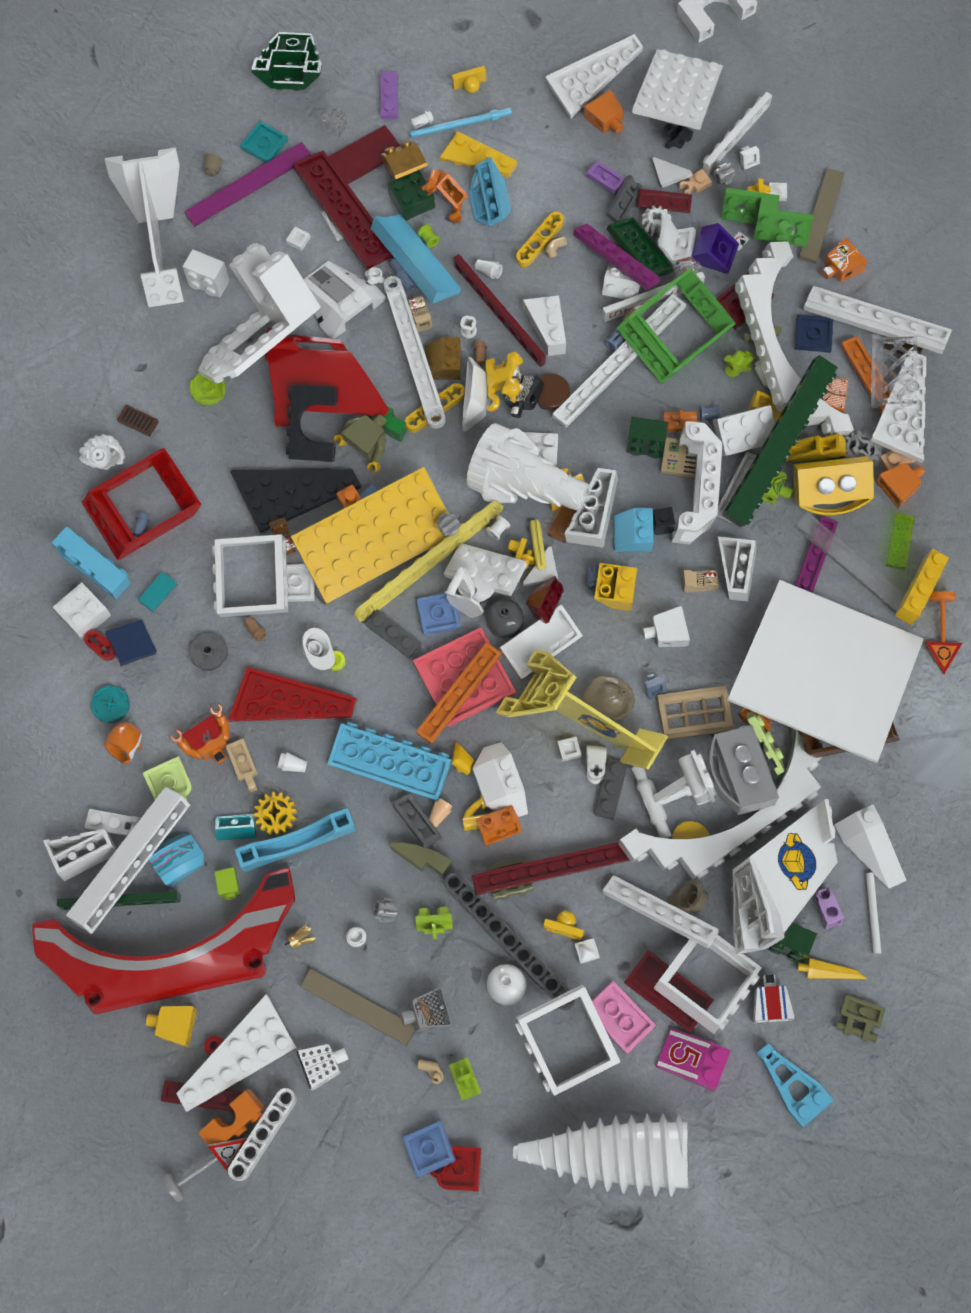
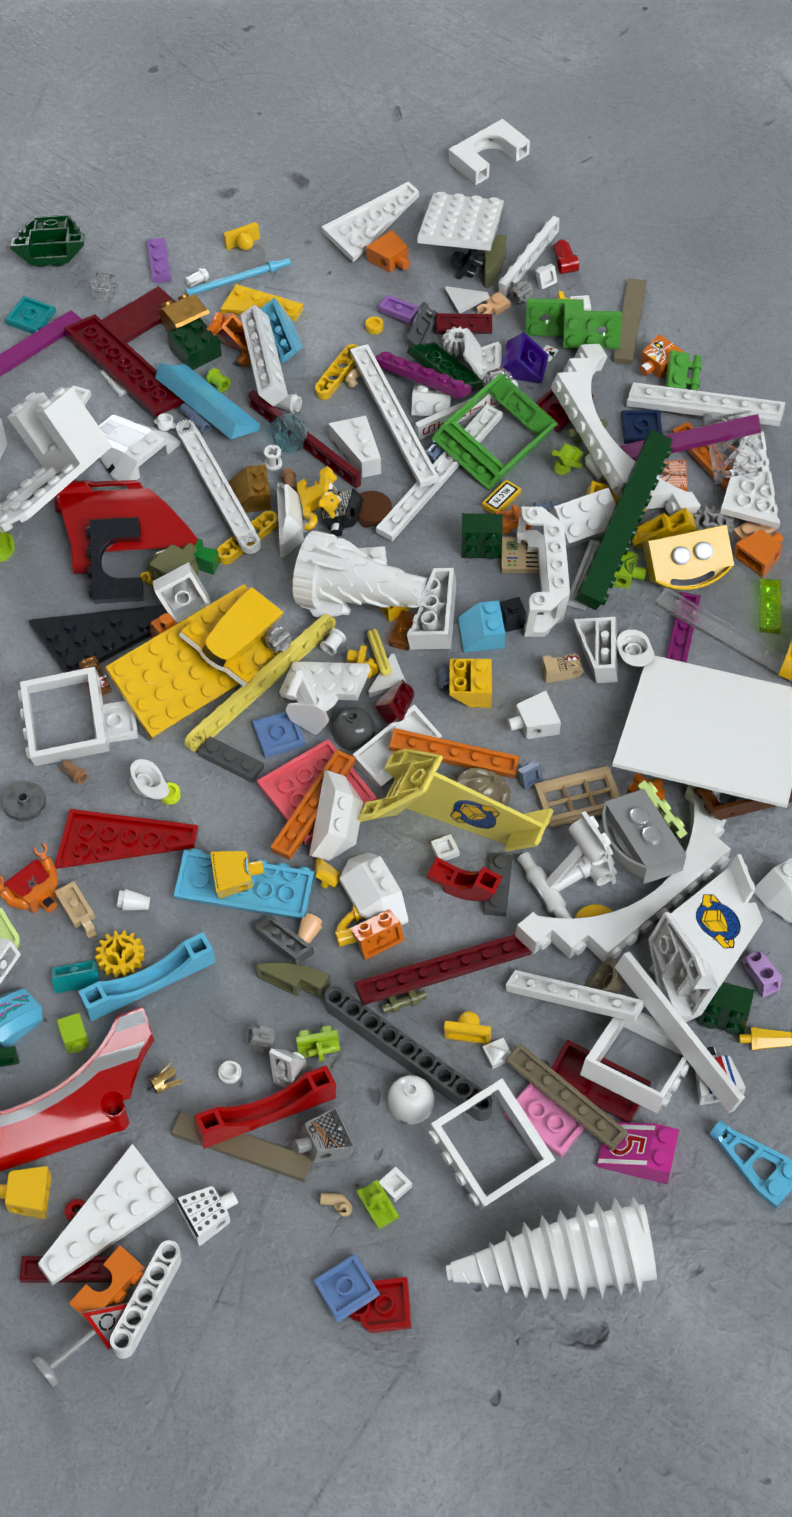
camera: 10 degrees left, 15 degrees down
(357, 986) = (228, 1122): none -> red arch
(367, 467) = (181, 592): none -> white brick
(381, 752) = (233, 872): none -> yellow torso
(405, 942) = (286, 1066): none -> white slope
(409, 518) = (234, 635): none -> yellow slope
(420, 313) = (220, 450): tan leg -> none
(472, 220) = (264, 355): none -> white brick
(477, 708) = (336, 818): none -> white wedge
(479, 298) = (279, 432): none -> clear light blue plate
(482, 1061) = (395, 1184): none -> white plate
(580, 191) = (374, 325): none -> yellow tile
(580, 786) = (464, 884): none -> red arch
(585, 297) = (394, 416): none -> white plate
(590, 657) = (456, 753): none -> orange plate
(595, 761) = (476, 854): white piece -> none
(639, 1003) = (566, 1097): none -> dark tan tile
(672, 394) = (501, 497): none -> tile
(703, 136) = (495, 259): none -> olive slope
(745, 963) = (679, 1032): none -> white tile
(768, 573) = (635, 648): none -> white piece
(771, 141) = (565, 259): none -> red piece
(857, 280) = (678, 368): none -> bright green plate
(861, 359) = (705, 435): none -> magenta tile

